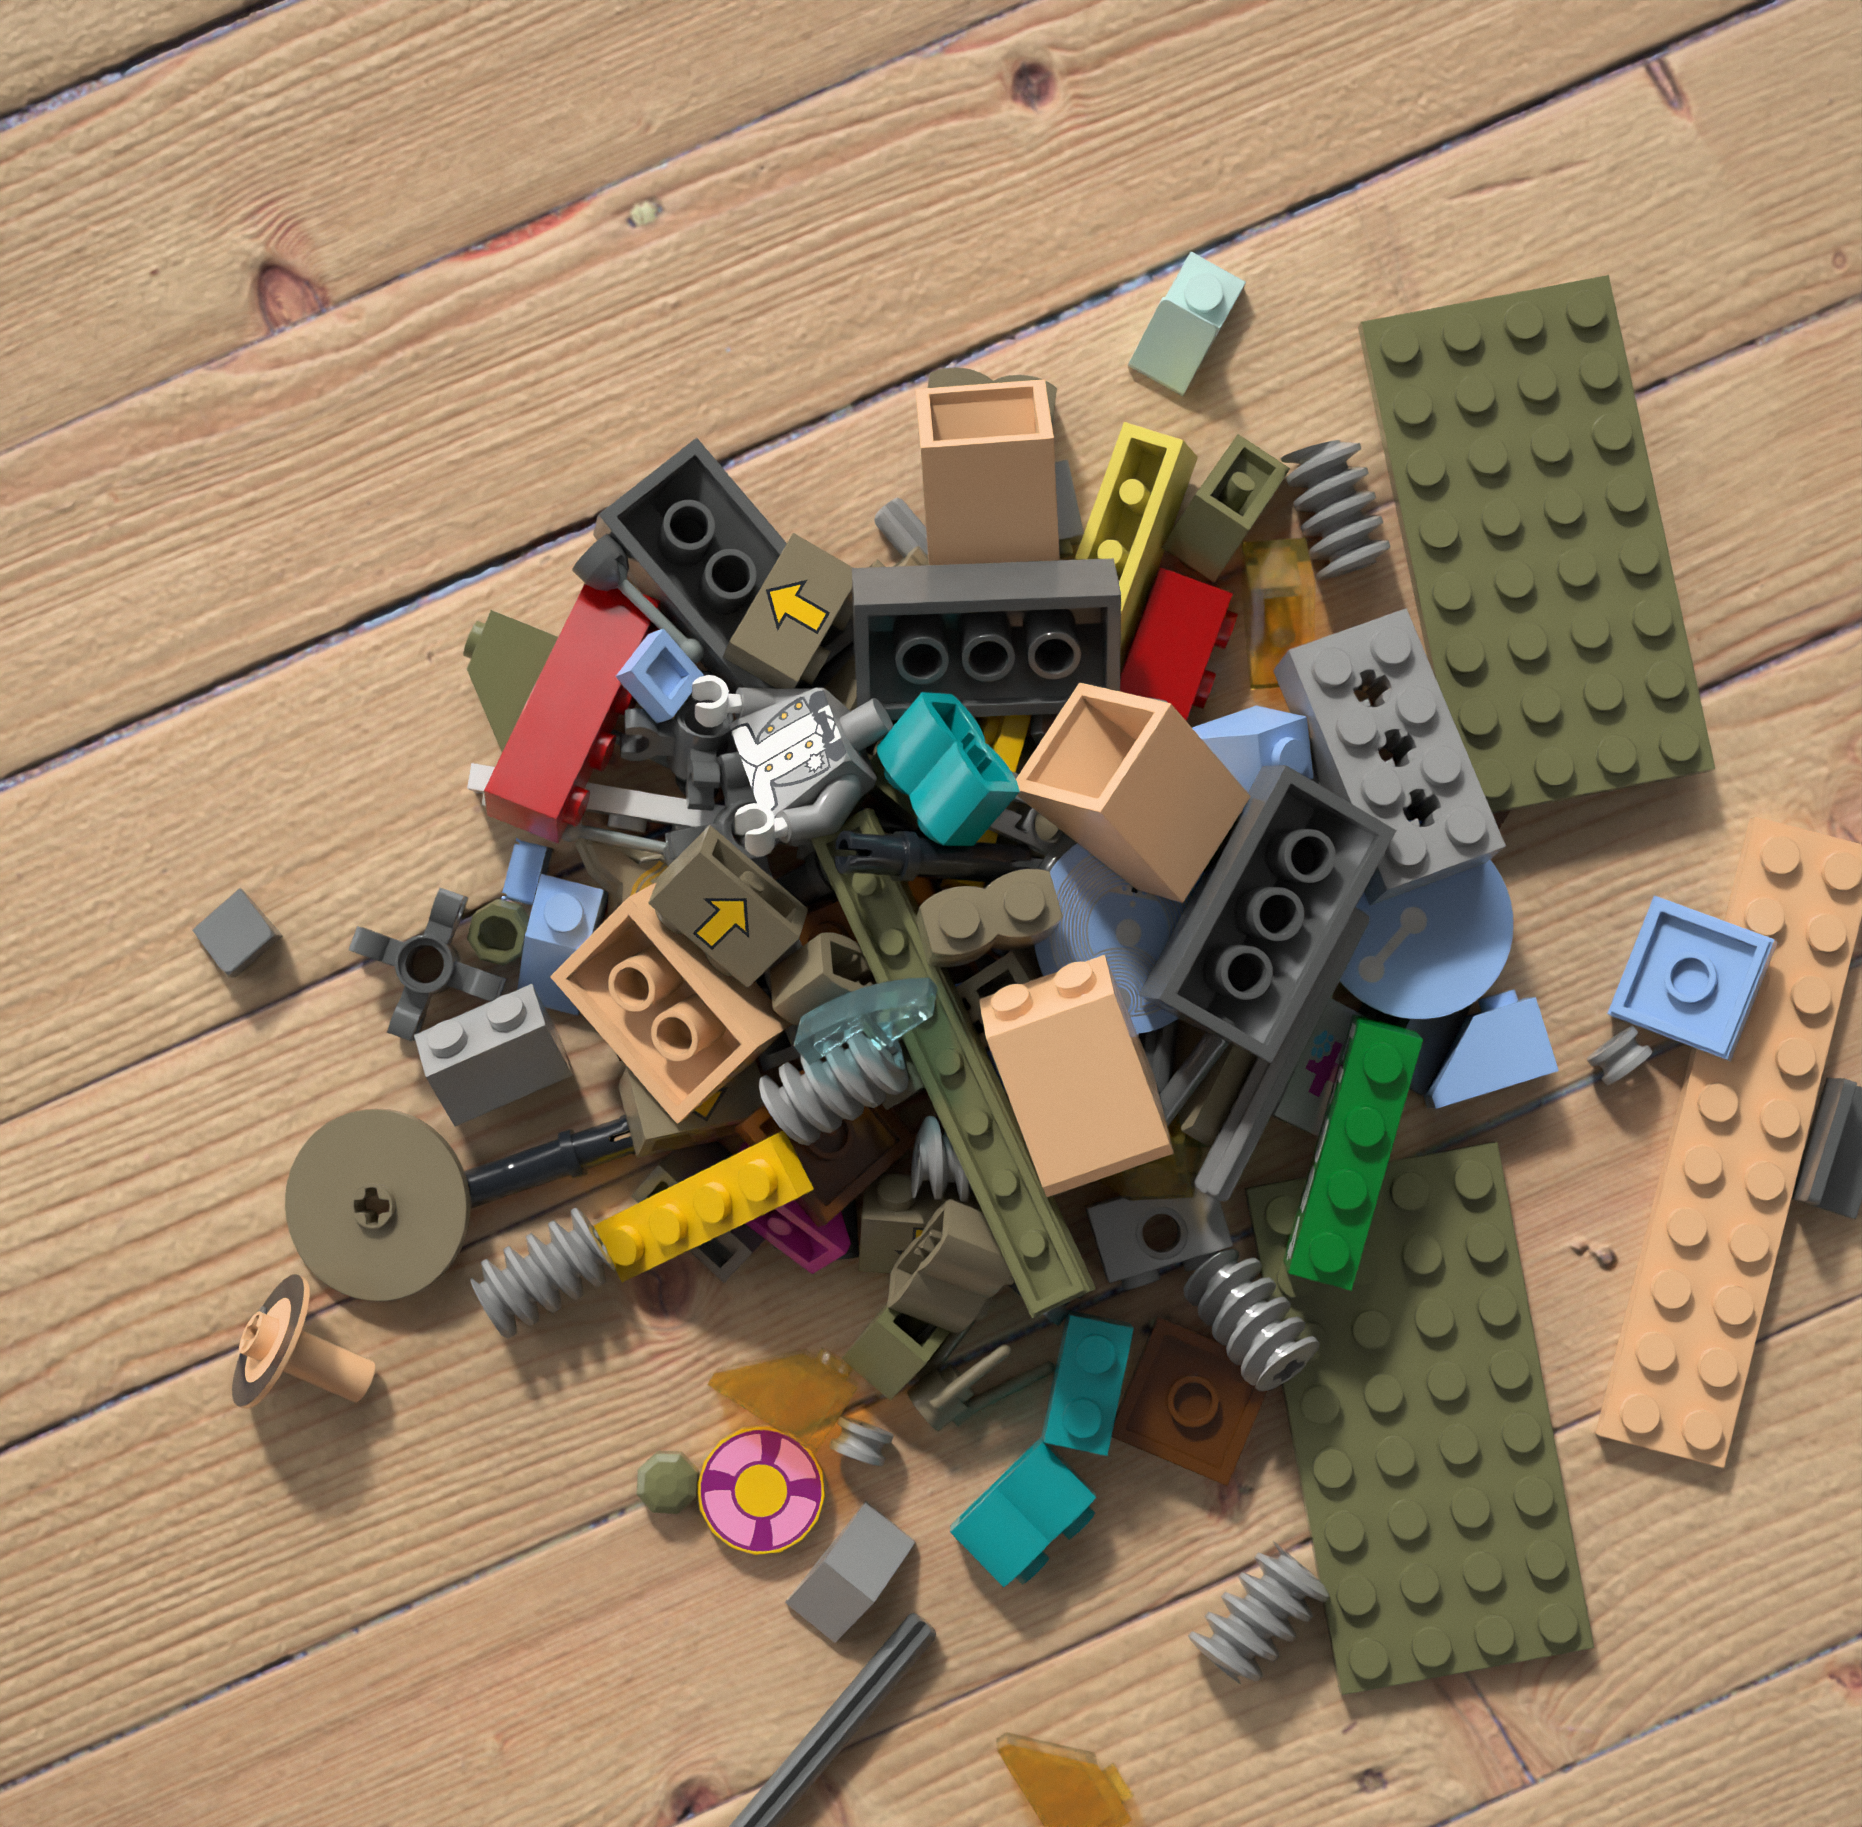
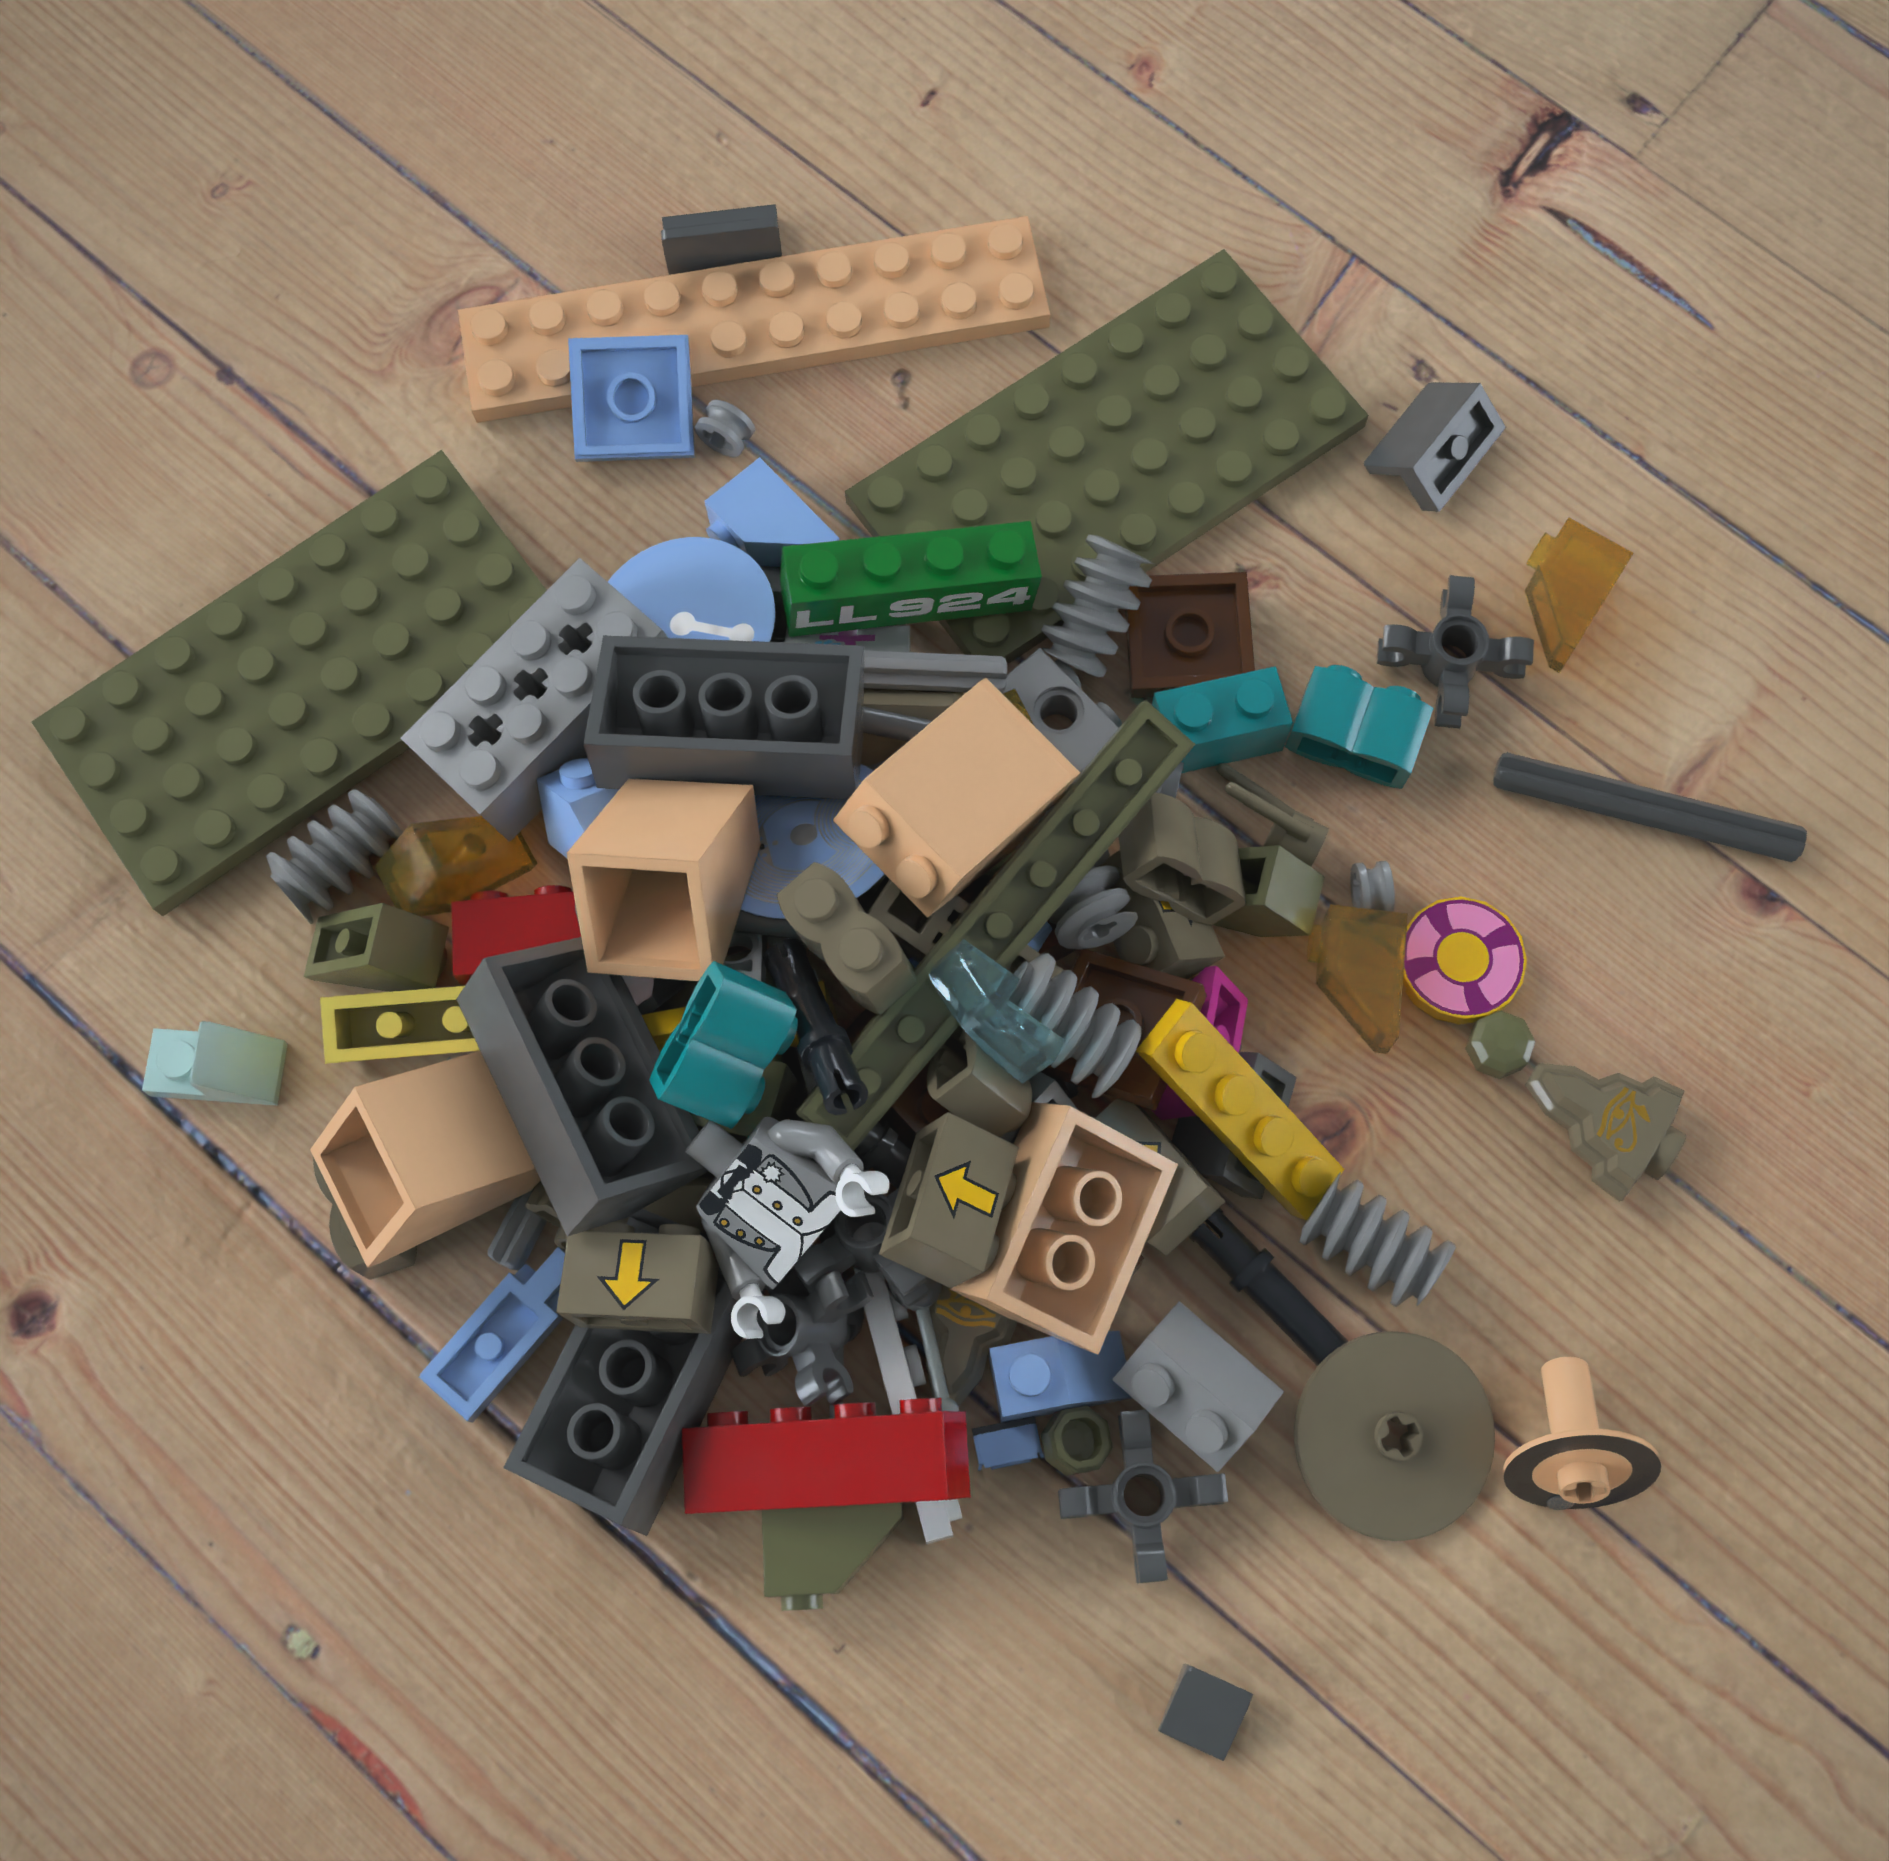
camera: 110 degrees left, 15 degrees down
(550, 1542) = (1612, 1122): none -> dark tan rock
(606, 568) = (672, 1493): hinge -> none
(659, 676) = (755, 1386): light blue plate -> none
(820, 480) = (497, 1338): none -> light blue hinge
(851, 1572) = (1490, 847): light grey slope -> none
(1039, 1669) = (1451, 675): none -> dark grey pin
(1260, 1615) = (1341, 500): light grey piece -> none
(1283, 1747) = (1438, 441): none -> dark grey panel

